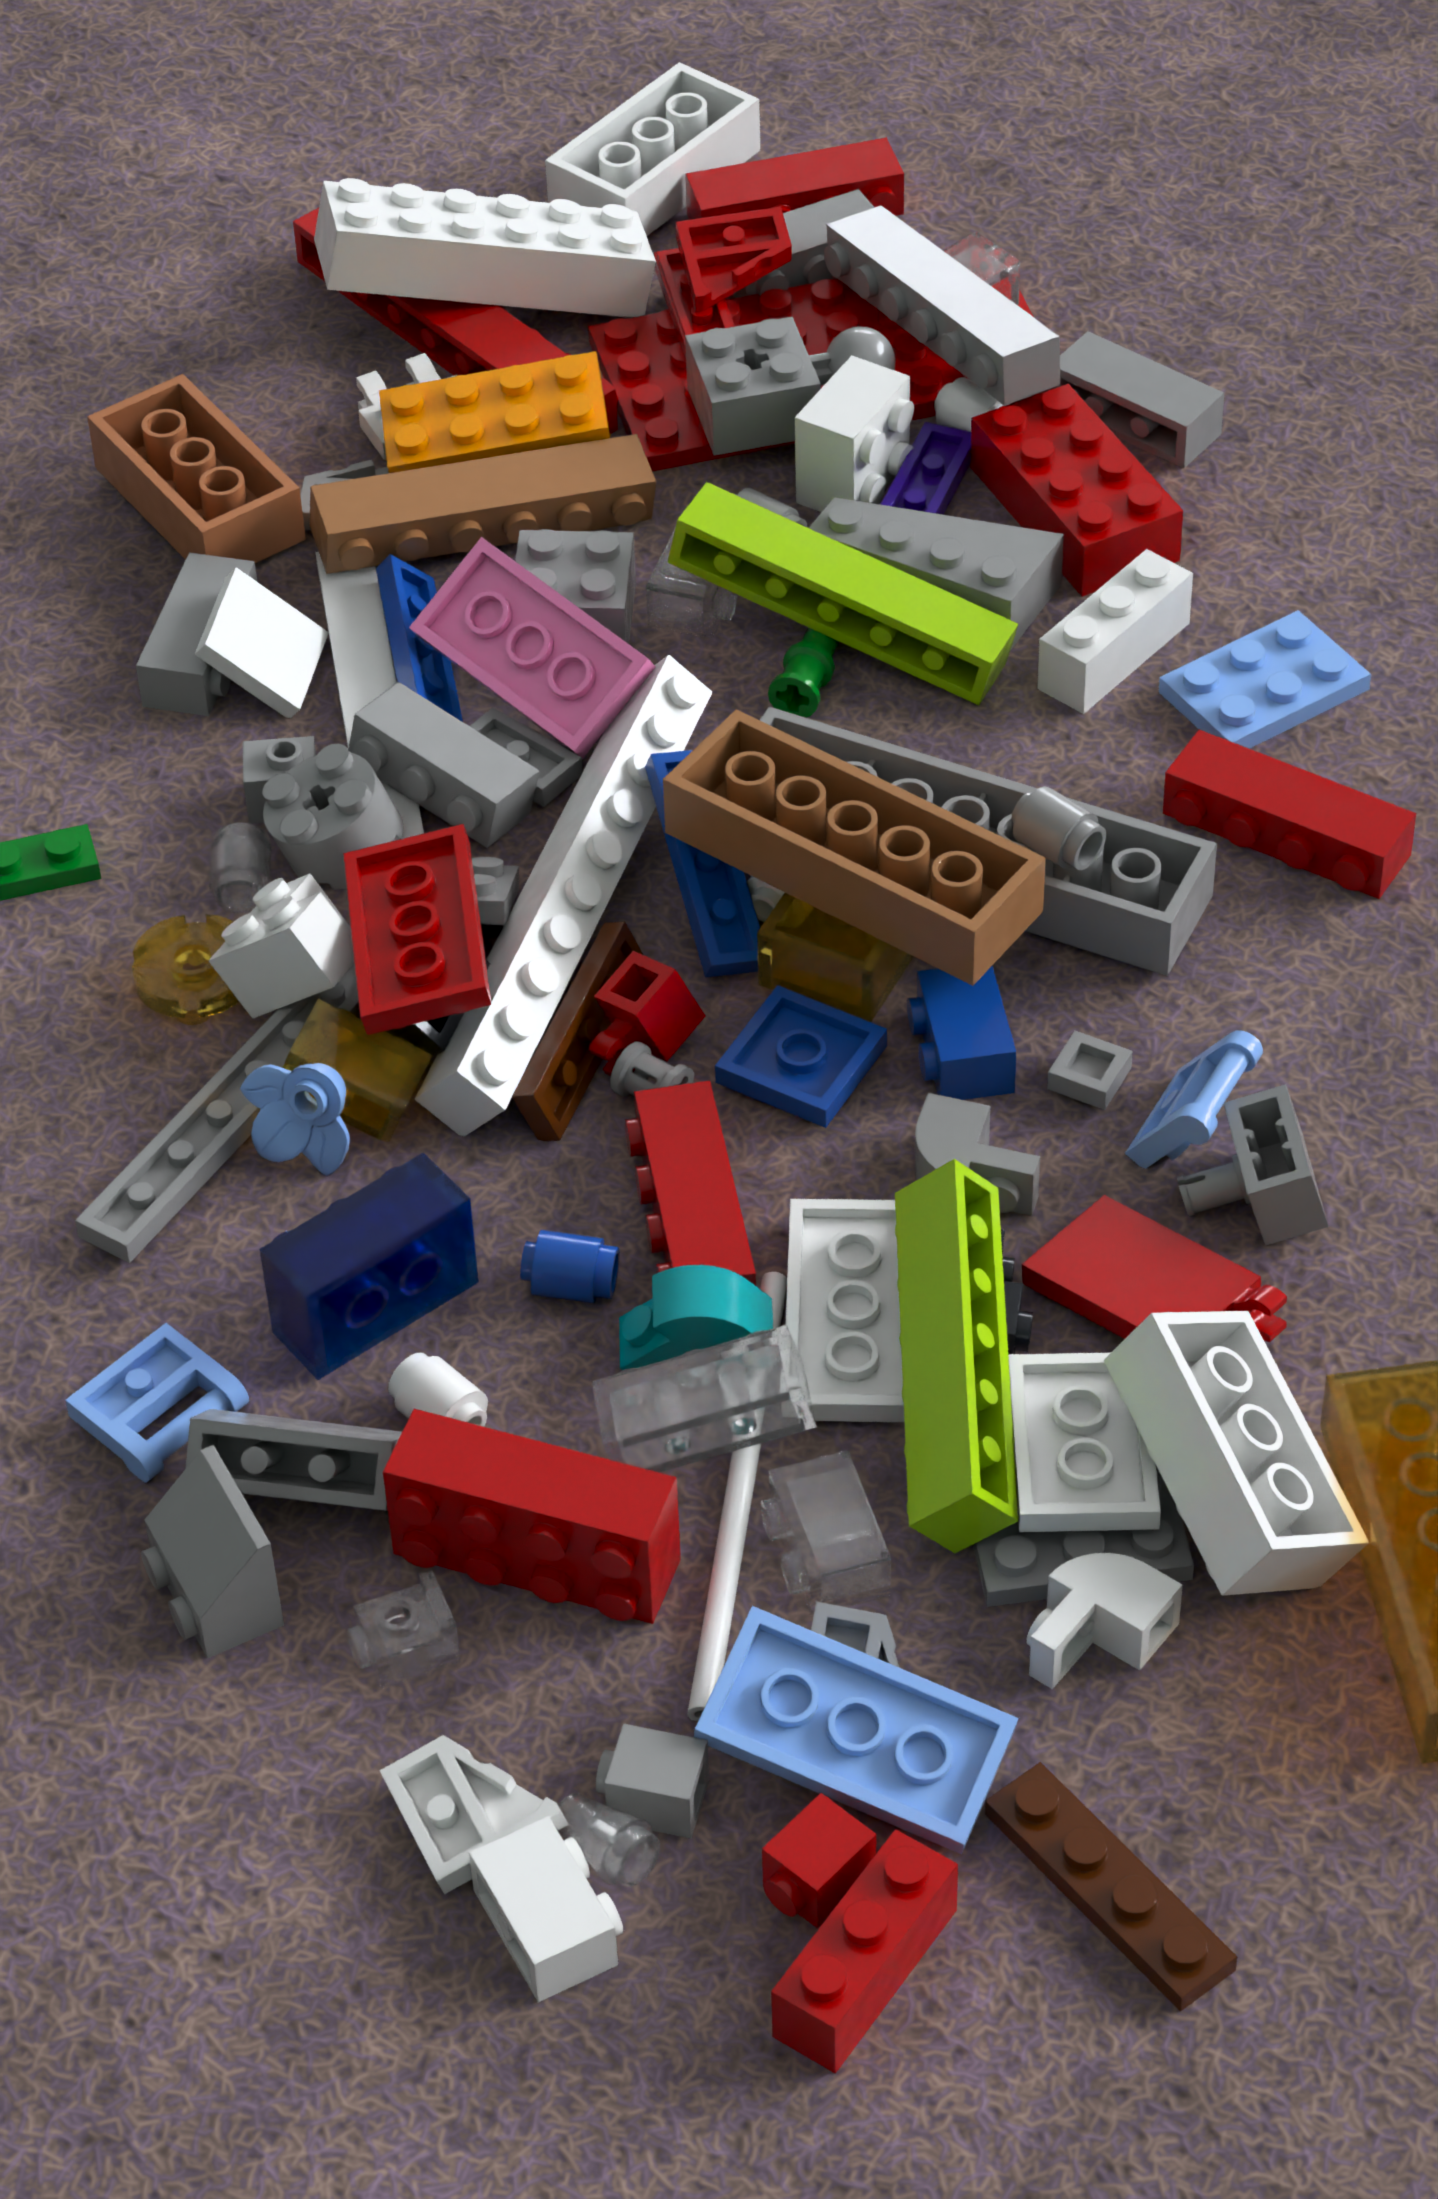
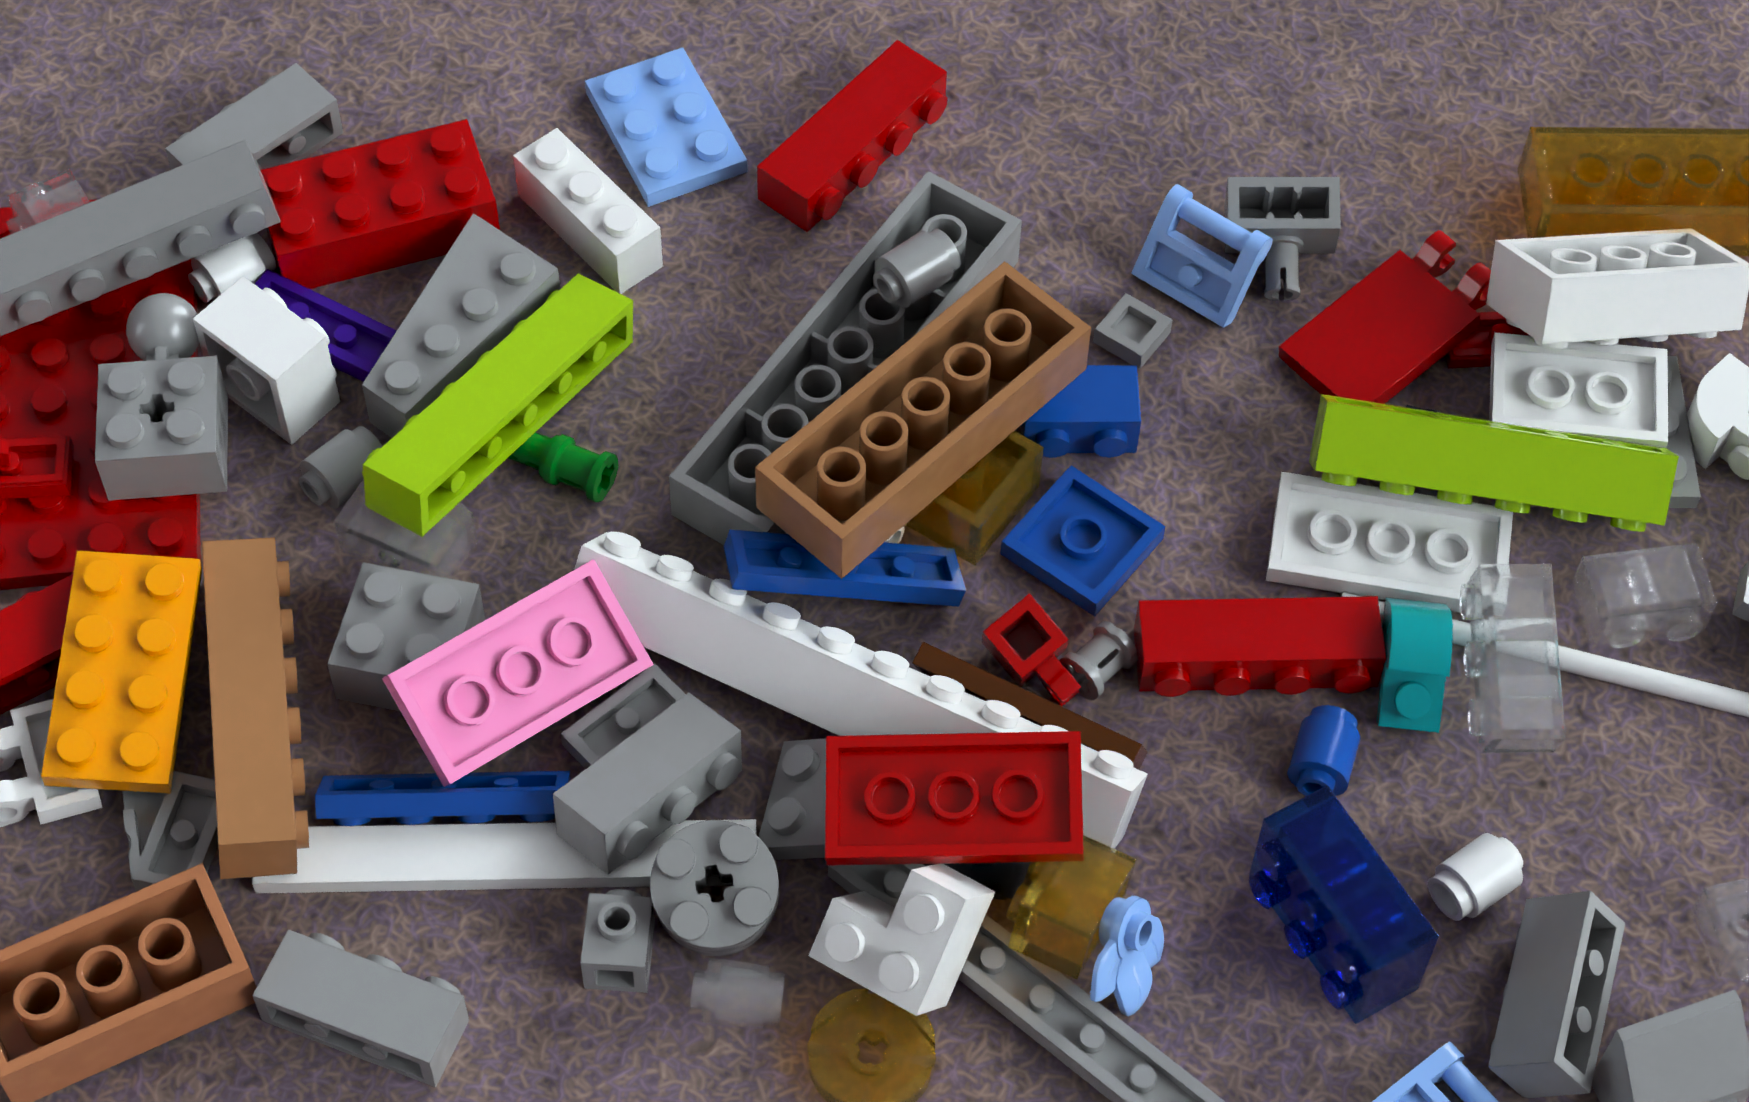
camera: 85 degrees left, 10 degrees up
(262, 643) = (411, 939): white tile -> none
(533, 1516) = (1656, 795): red brick -> none
(961, 1131) = (1233, 444): light grey brick -> none

